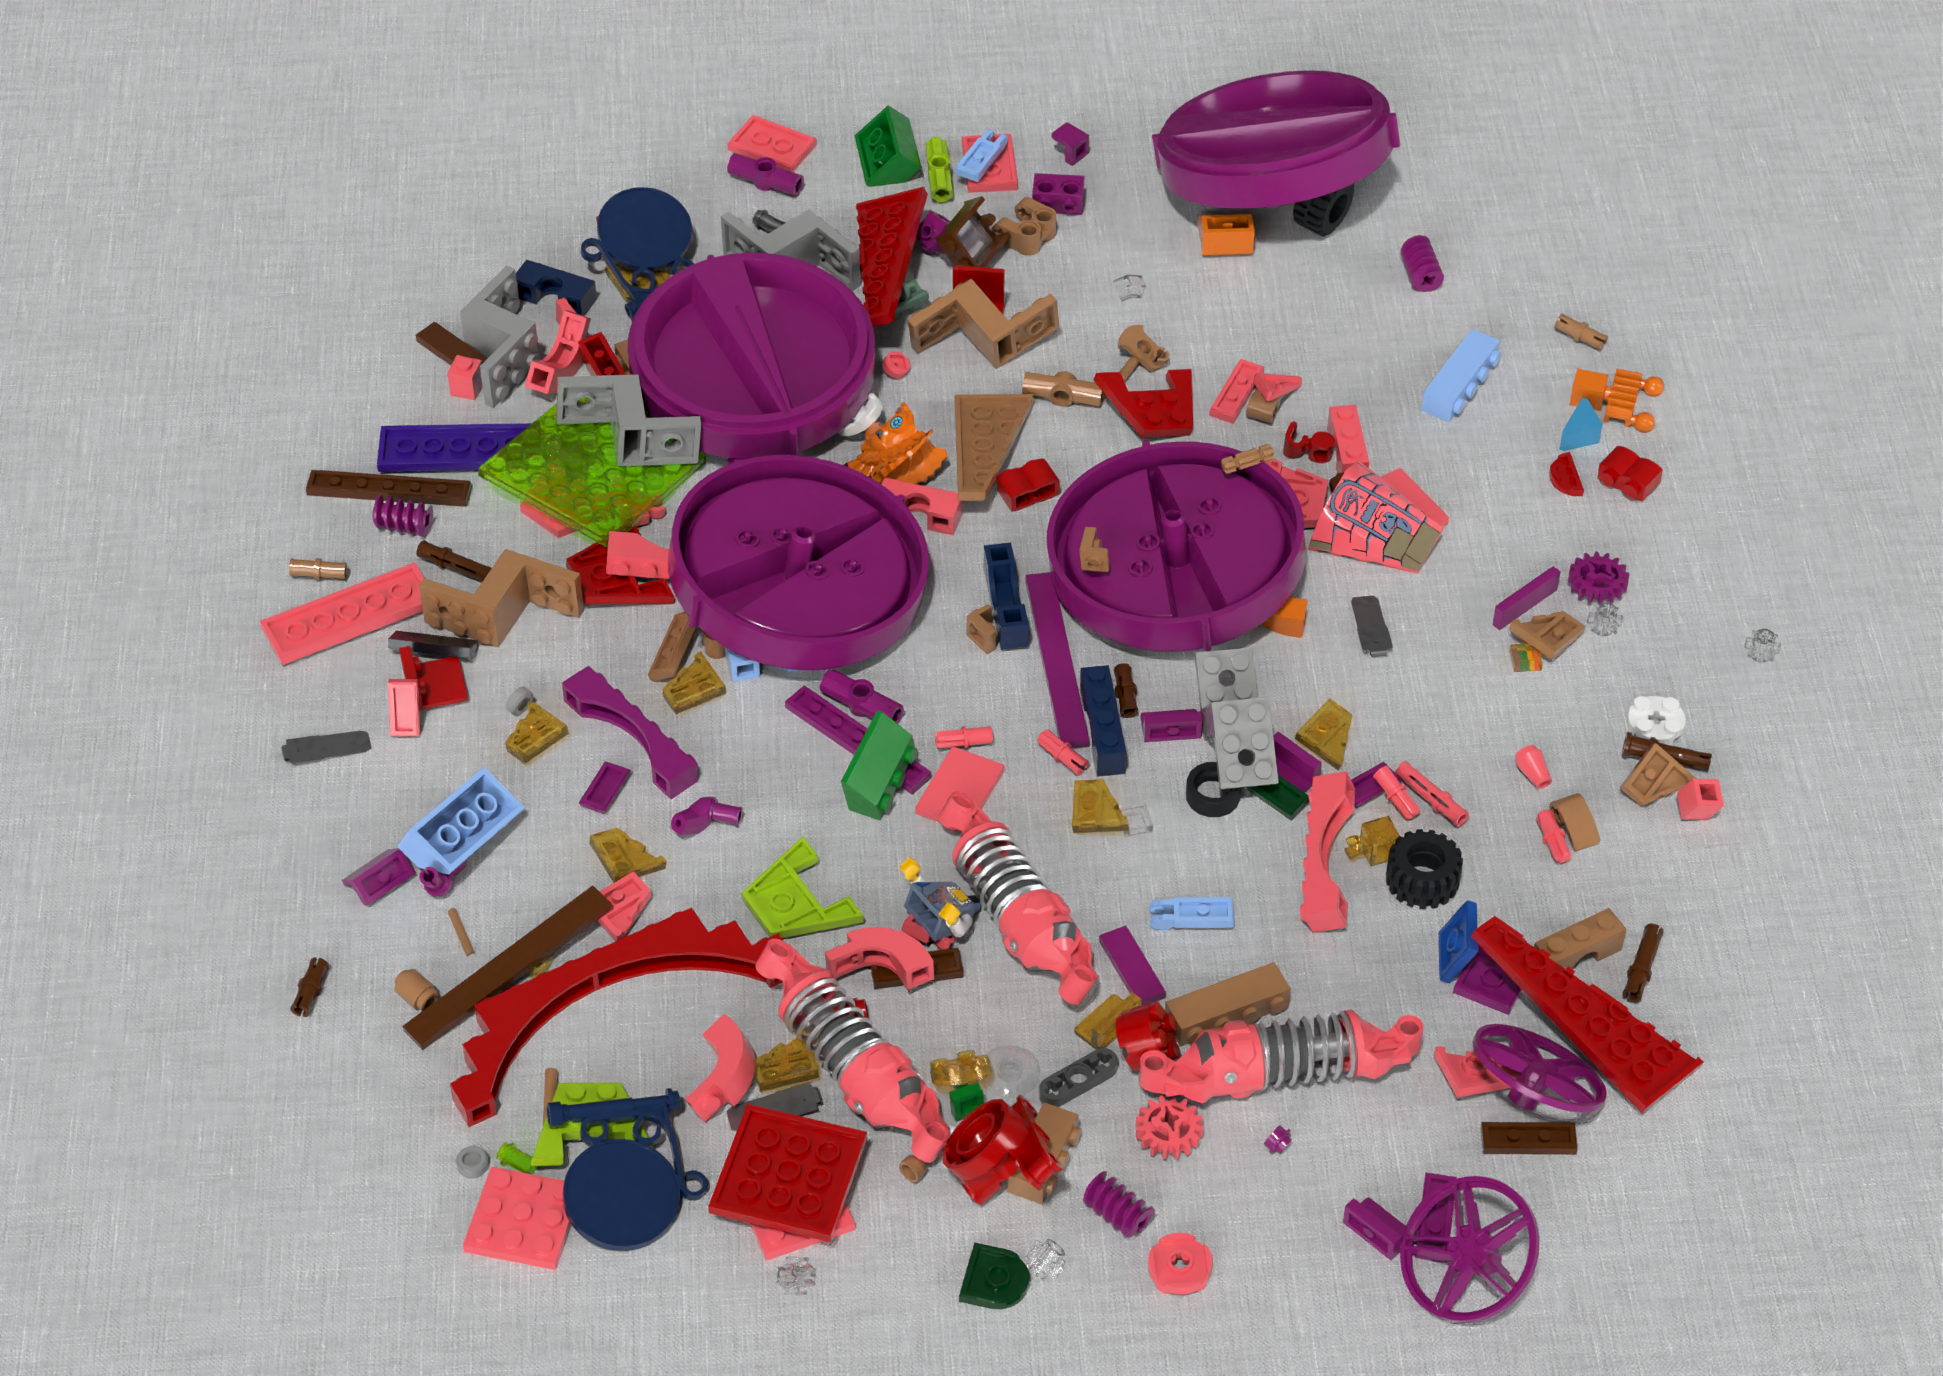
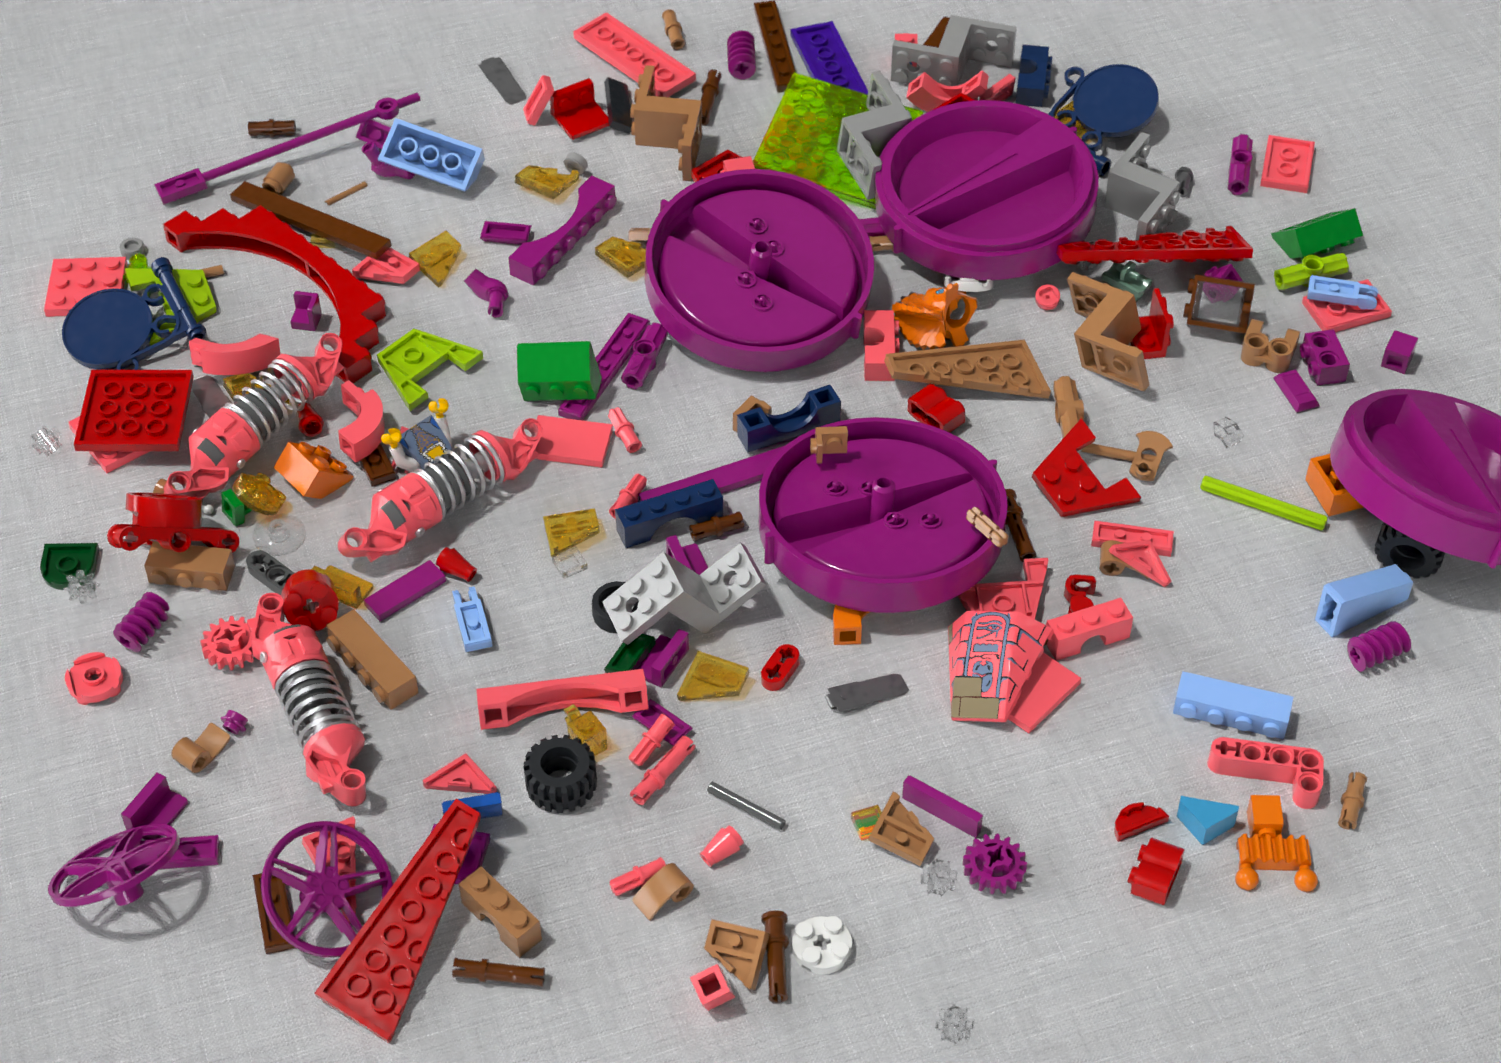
camera: 75 degrees right, 0 degrees up
(382, 1076) = (195, 181): none -> magenta bar
(670, 991) = (307, 311): none -> magenta panel
(934, 1019) = (312, 469): none -> orange slope
(1086, 228) = (1296, 391): none -> magenta tile
(1112, 914) = (454, 563): none -> red cone
(1222, 290) = (1264, 502): none -> lime axle
(1305, 1179) = (200, 753): none -> medium nougat panel
(1325, 680) = (785, 670): none -> red beam
(1368, 257) = (1361, 598): none -> light blue slope
(1395, 957) = (460, 776): none -> coral tile
(1485, 742) = (746, 805): none -> dark grey bar
(1541, 352) = (1271, 763): none -> coral beam

